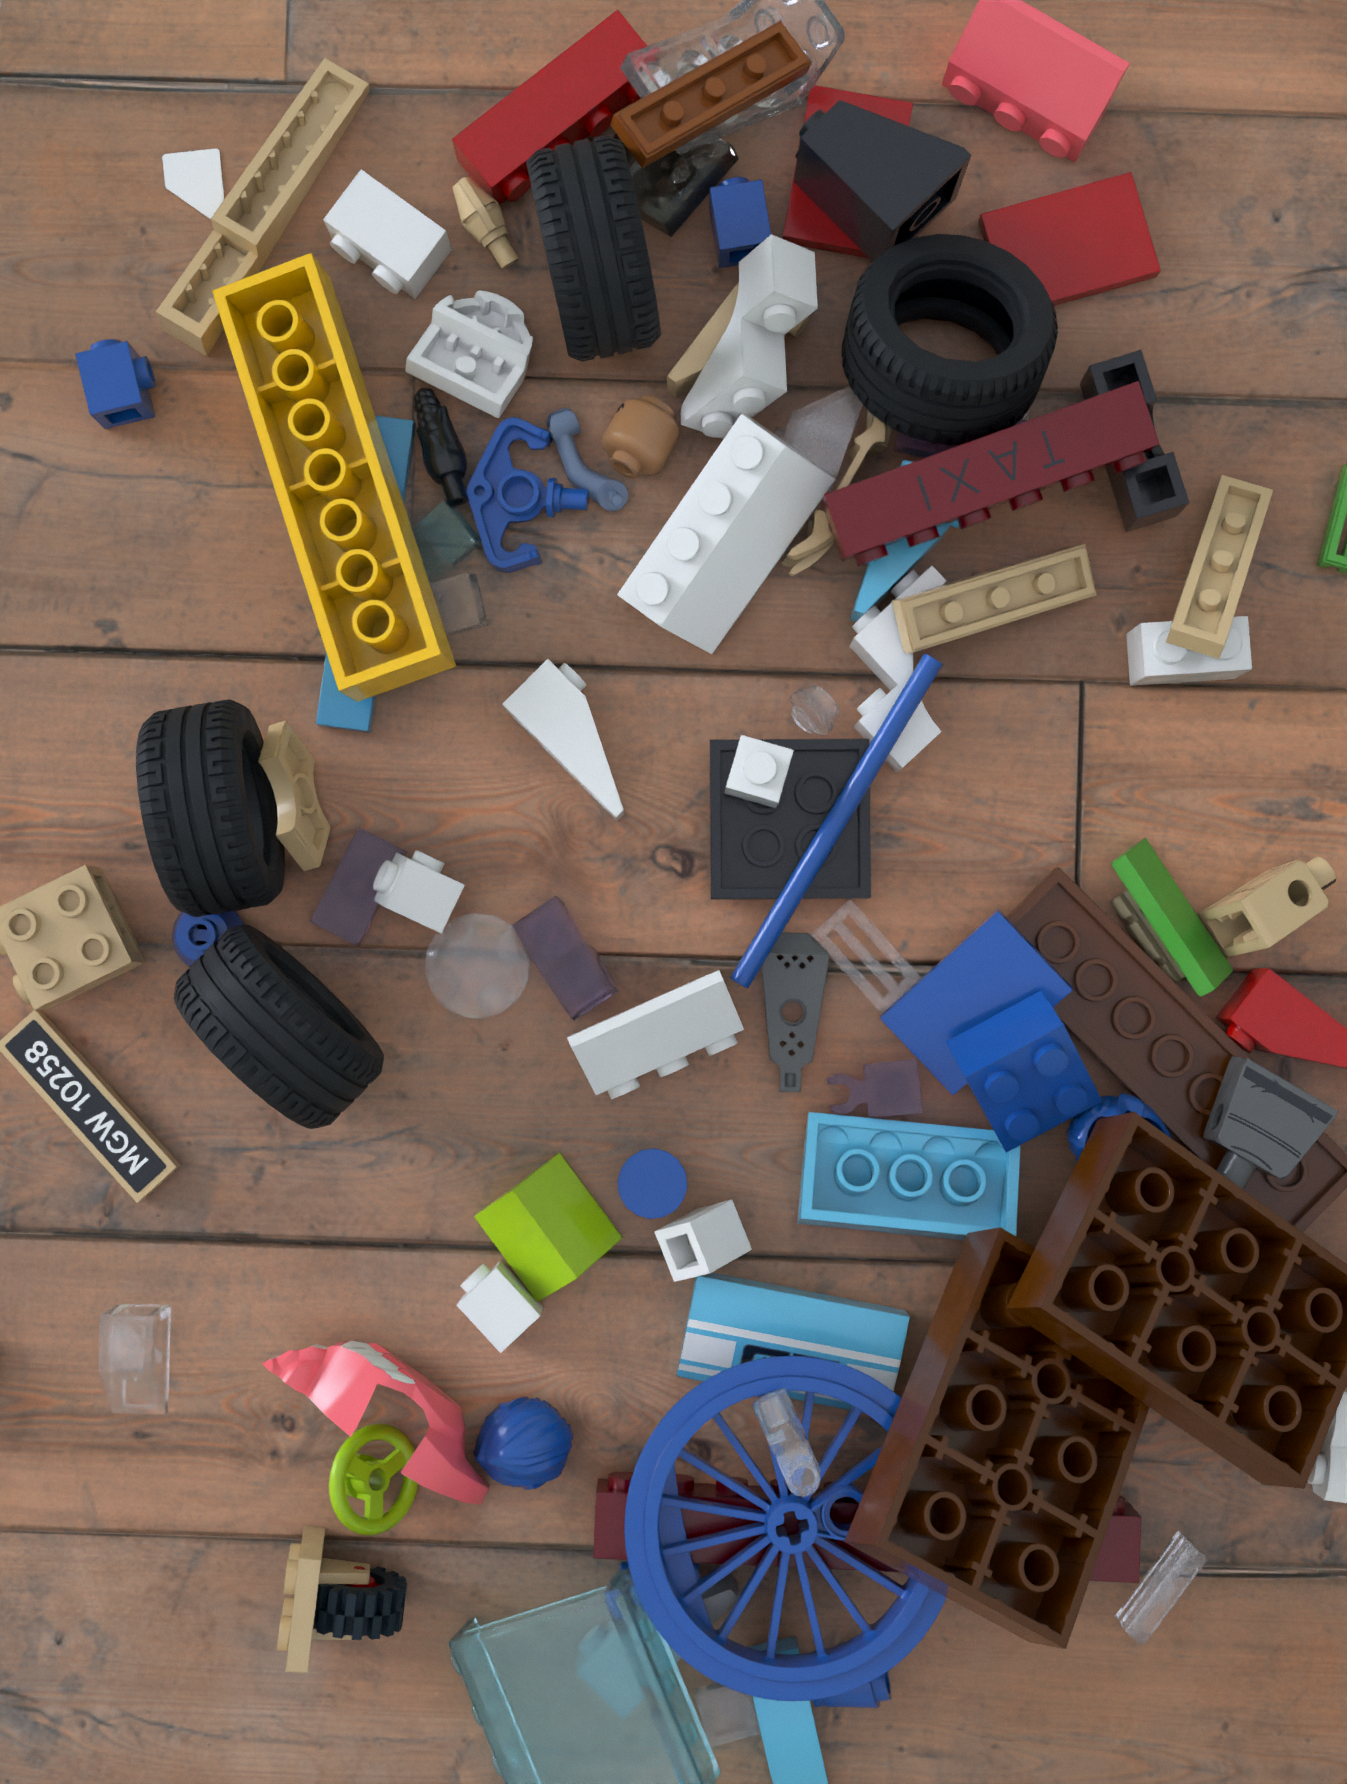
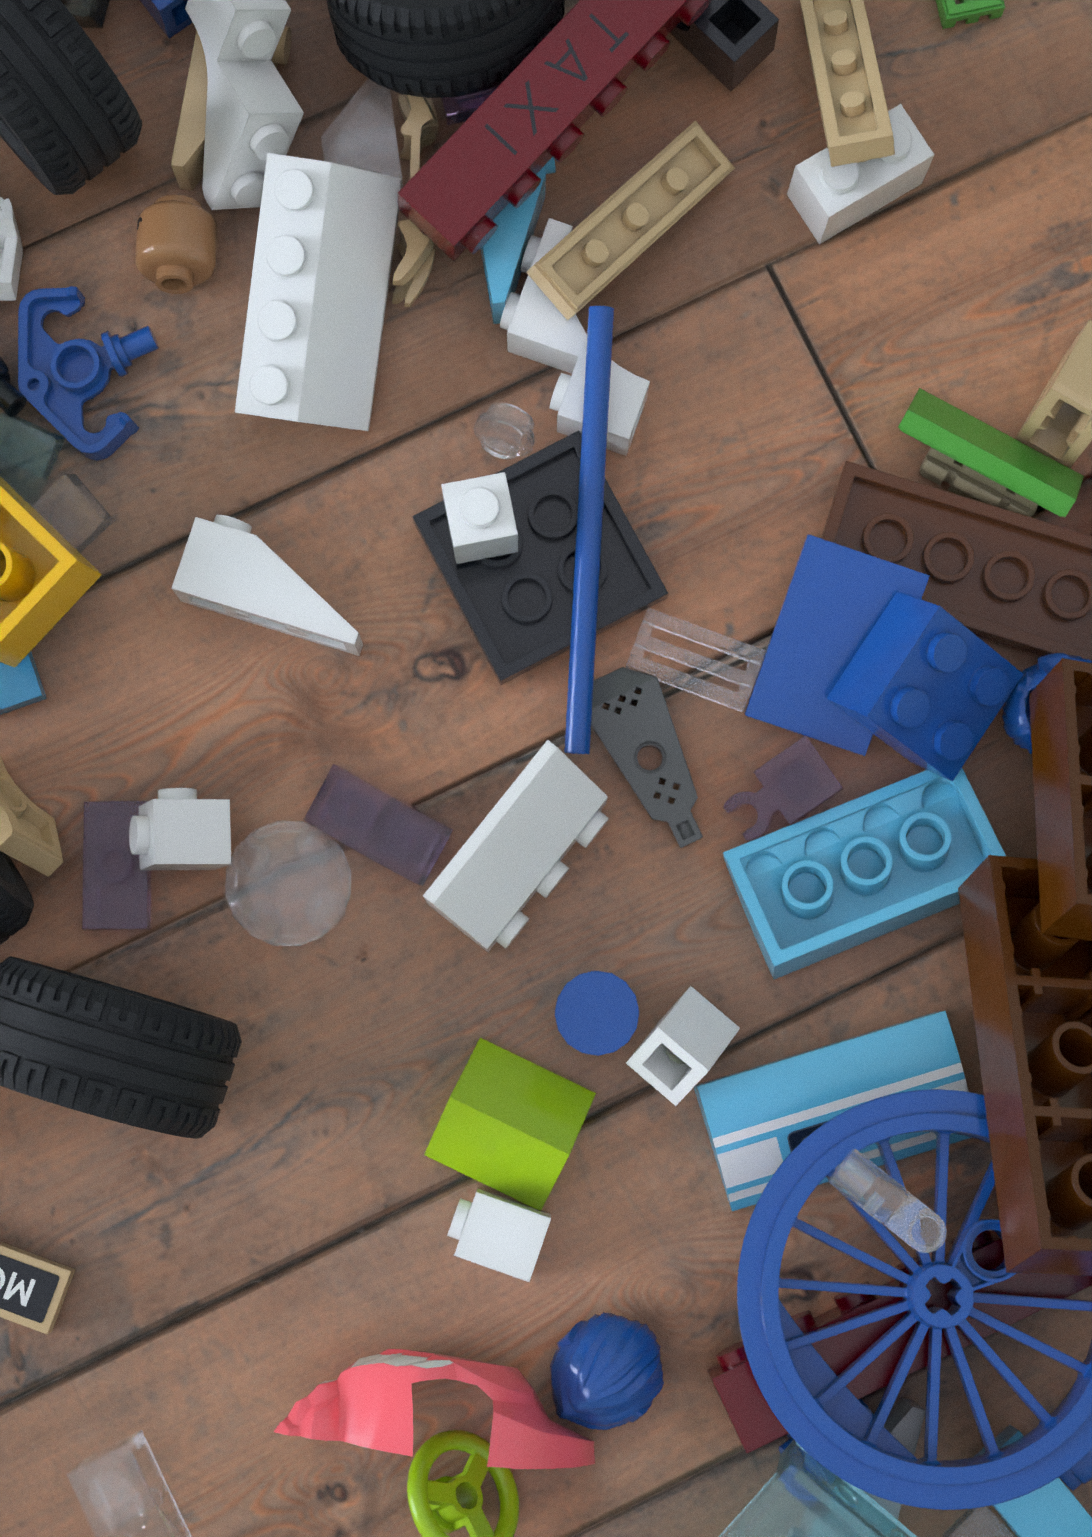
camera: 30 degrees left, 5 degrees down
(603, 490) = (165, 320): sand blue piece -> none

